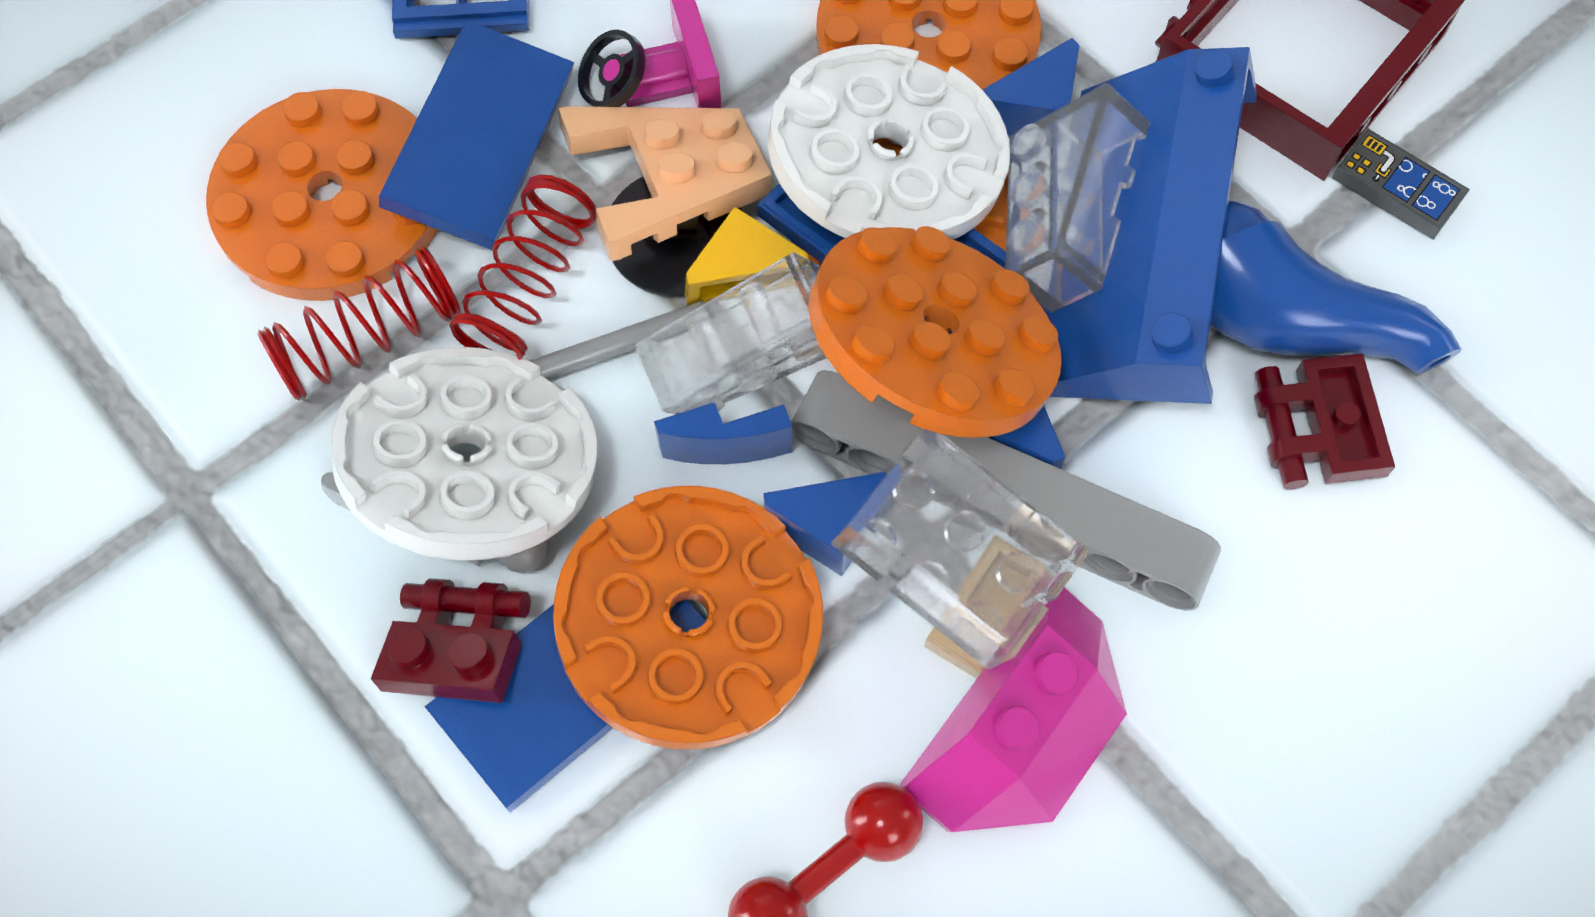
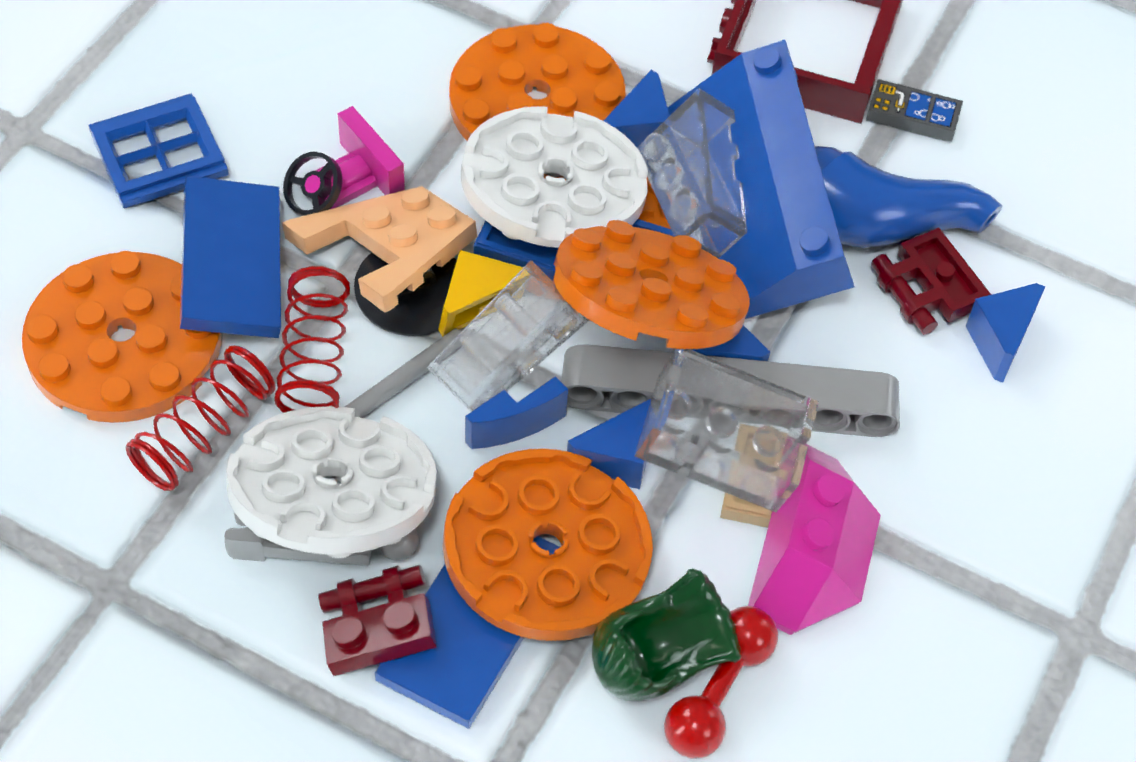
camera: 25 degrees left, 10 degrees down
(769, 797) = (664, 639): none -> dark green piece
(1392, 510) = (1000, 323): none -> blue slope

